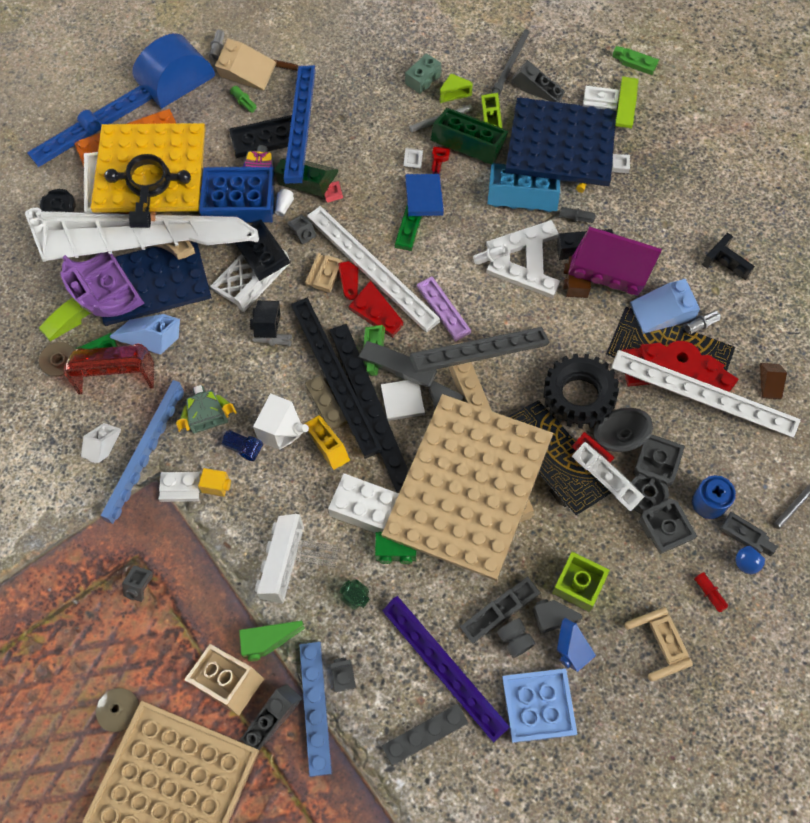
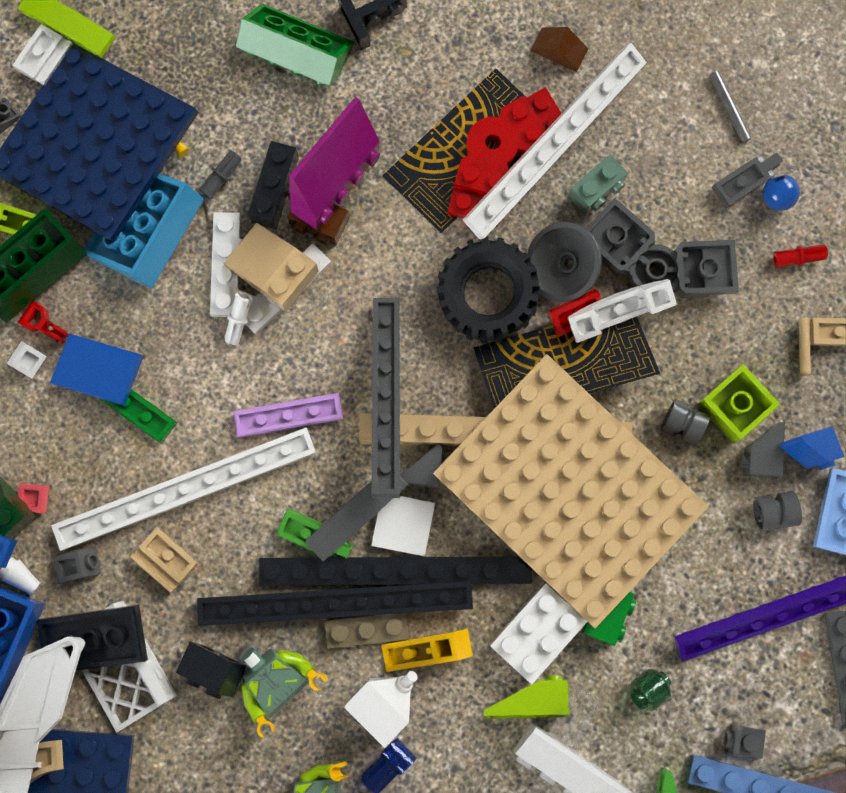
camera: 70 degrees left, 15 degrees up
(270, 356) = (273, 682): none -> torso
(318, 519) = (540, 700): none -> lime slope
(349, 279) = (190, 528): red piece -> none
(376, 310) = (253, 508): red wing -> none
(500, 610) = (733, 515): dark grey slope -> none
(531, 261) = (272, 266): none -> tan slope
(551, 548) = (685, 422): none -> dark grey wheel
(621, 163) = (164, 77): white plate -> none
(665, 306) = (409, 127): light blue slope -> none
(682, 223) = (293, 44): none -> slope
(690, 434) = (597, 185): none -> sand green brick
(702, 322) = (448, 92): light grey axle -> none
(706, 501) = (683, 206): blue piece -> none

